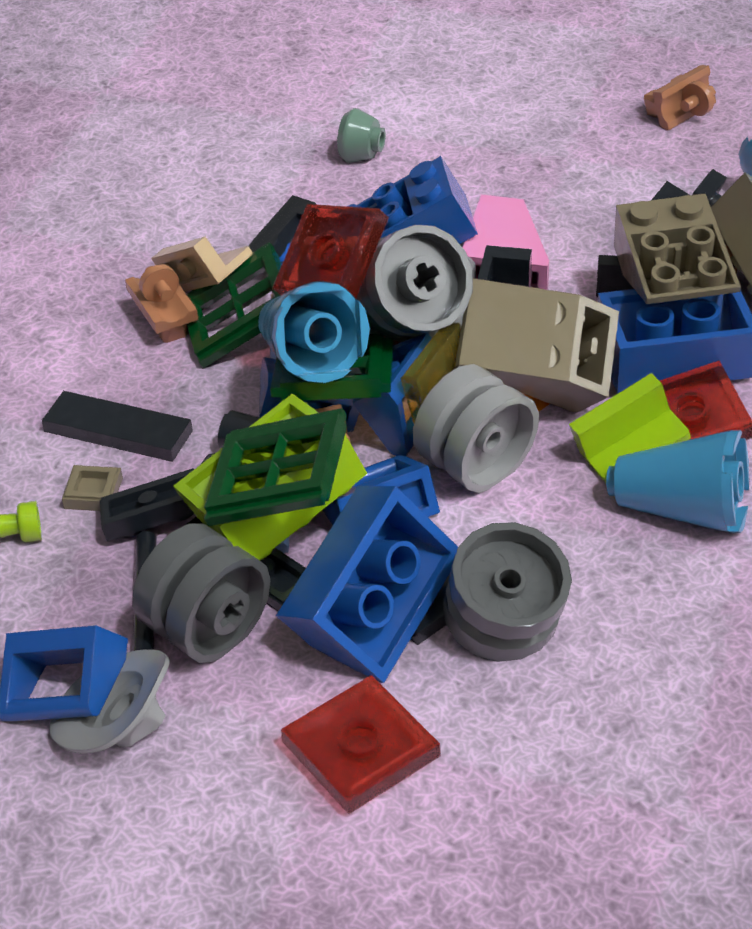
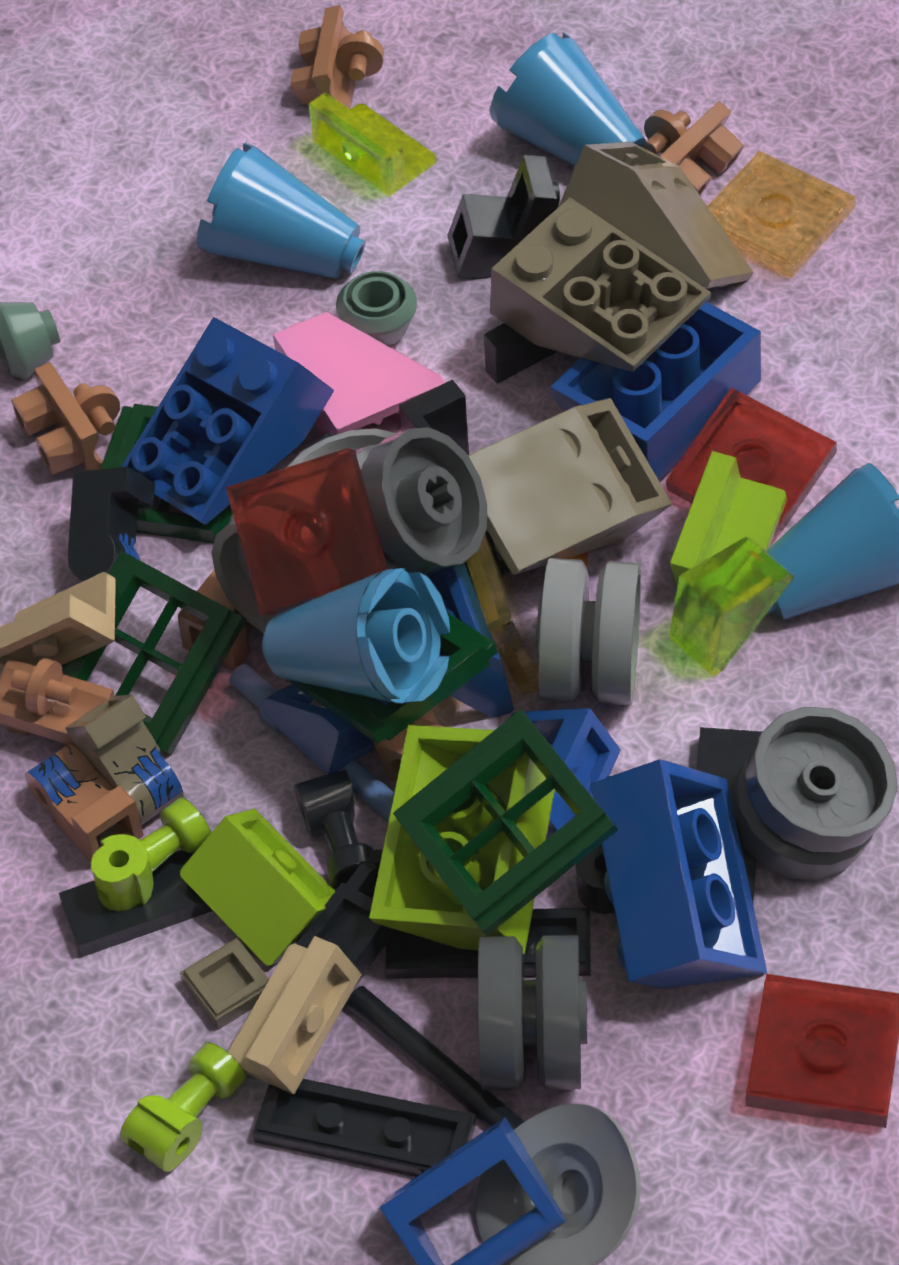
camera: 40 degrees left, 10 degrees up
(63, 592) = (361, 1127): none -> black tile
(86, 512) = (295, 1013): none -> tan panel
(97, 393) = (125, 864): none -> lime leg
(125, 351) = (82, 799): none -> nougat leg
(158, 439) = (257, 884): none -> lime panel
(163, 344) = (126, 754): none -> dark tan leg
(334, 183) = (75, 419): none -> nougat hips
(551, 143) = (276, 219): none -> dark azure cone
(560, 218) = (378, 305): none -> sand green cone
(580, 462) = (725, 601): none -> clear neon green slope
(660, 150) = (368, 144): none -> clear neon green panel

